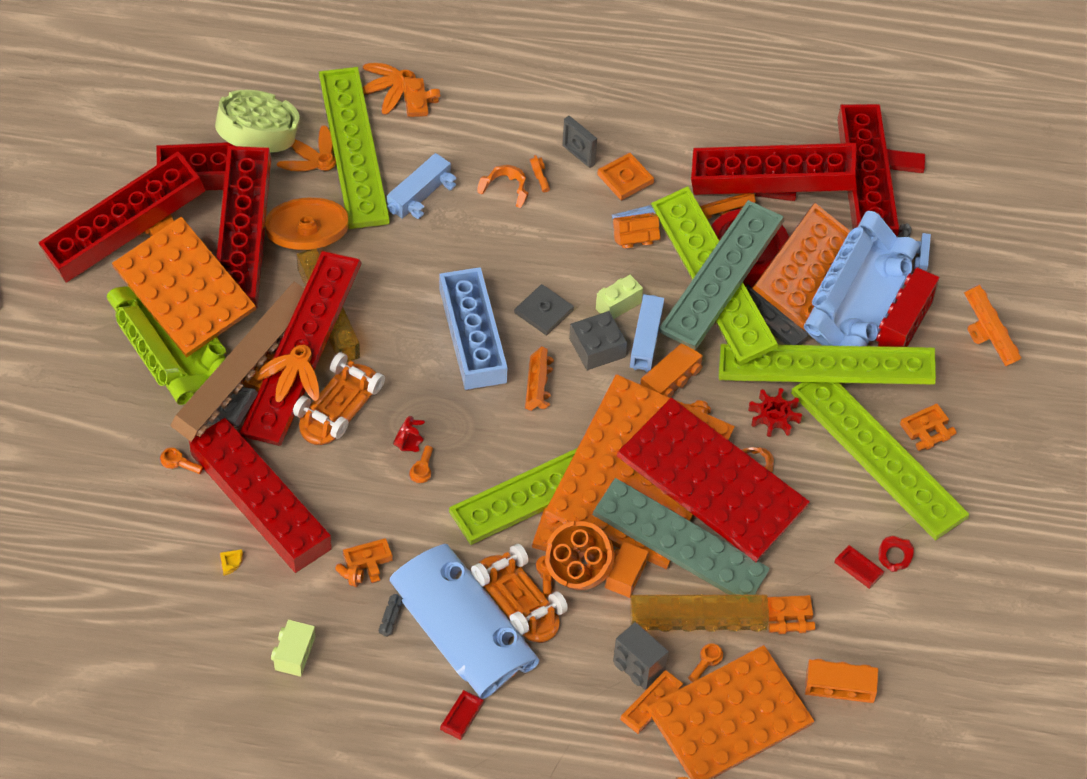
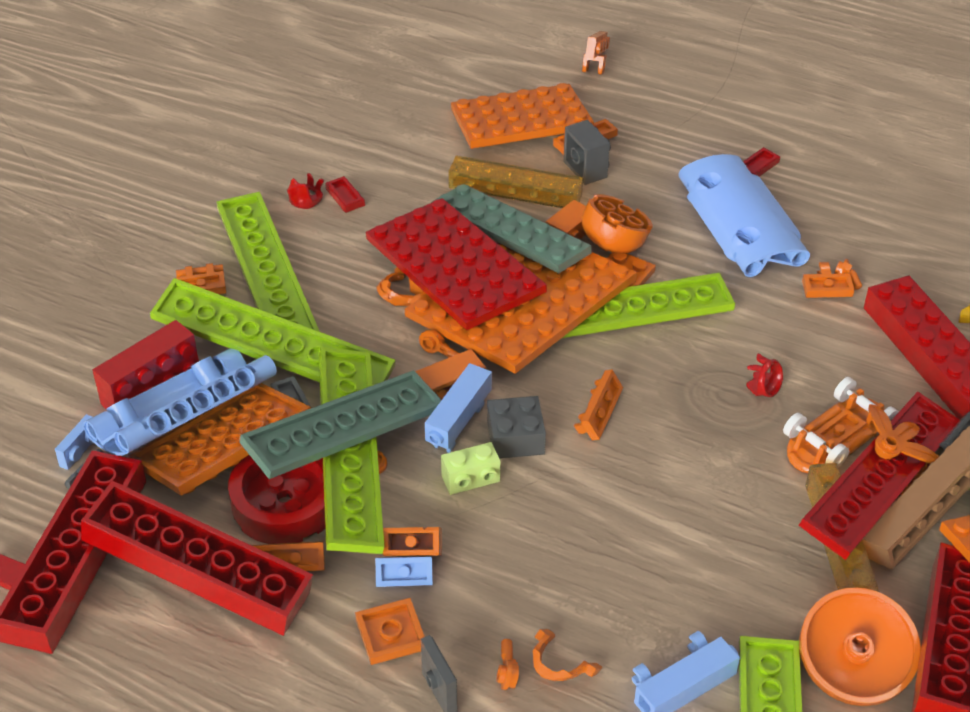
camera: 160 degrees left, 10 degrees down
(294, 647) = (912, 222): yellowish green brick -> none
(390, 615) = (813, 236): dark grey axle -> none
(420, 470) = (755, 345): orange plate -> none
(473, 328) = (663, 468): light blue brick -> none
(519, 596) = (685, 227): orange piece -> none
(544, 309) = (565, 487): dark grey plate -> none
(544, 573) = (650, 246): orange plate -> none
(710, 656) = (520, 156): orange plate -> none
(775, 412) = (352, 320): red gear -> none
(787, 609) = (429, 177): orange plate -> none
(841, 680) = (413, 118): orange brick -> none
(990, 326) = (66, 335): orange plate -> none

